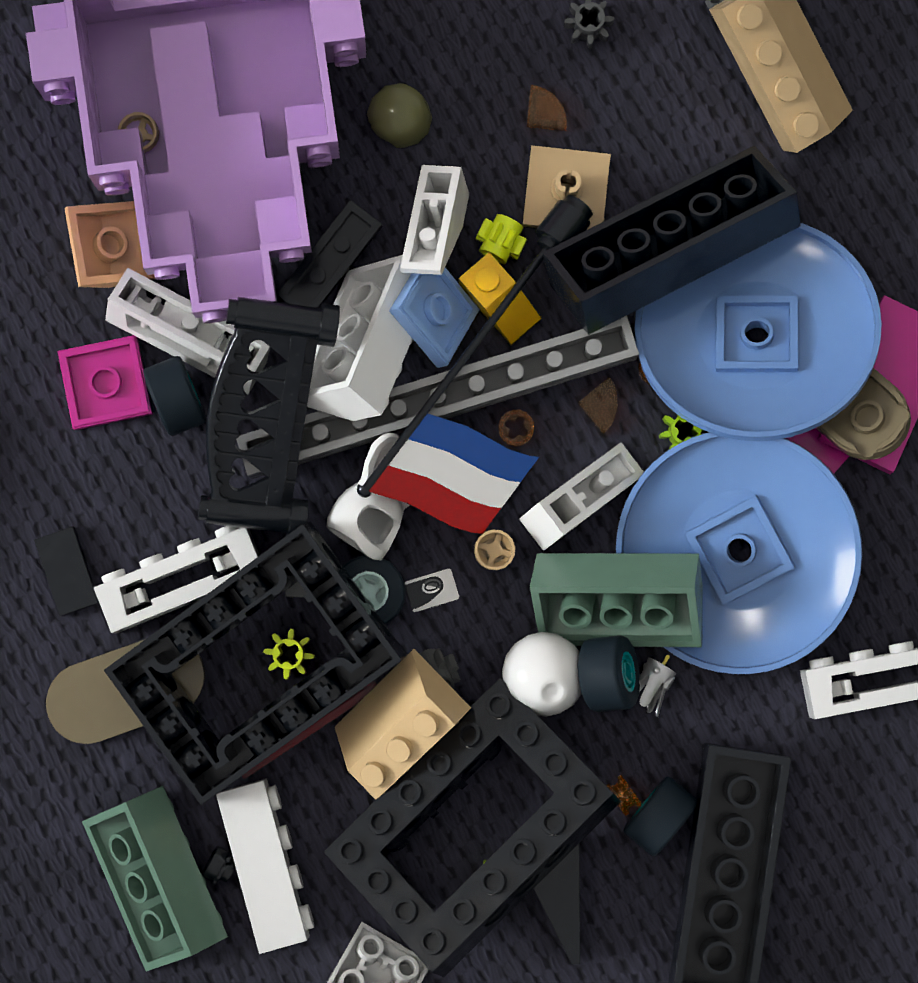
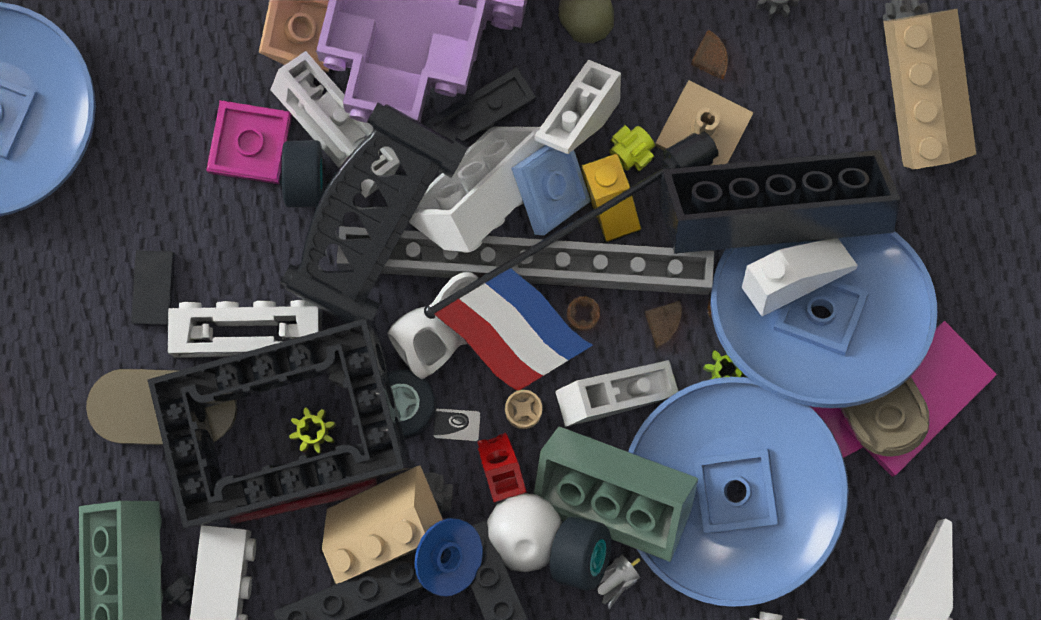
camera: 20 degrees right, 5 degrees down
(480, 731) = (460, 559): none -> blue dish
(495, 618) = (501, 467): none -> red leg
(718, 306) = (795, 272): none -> white slope

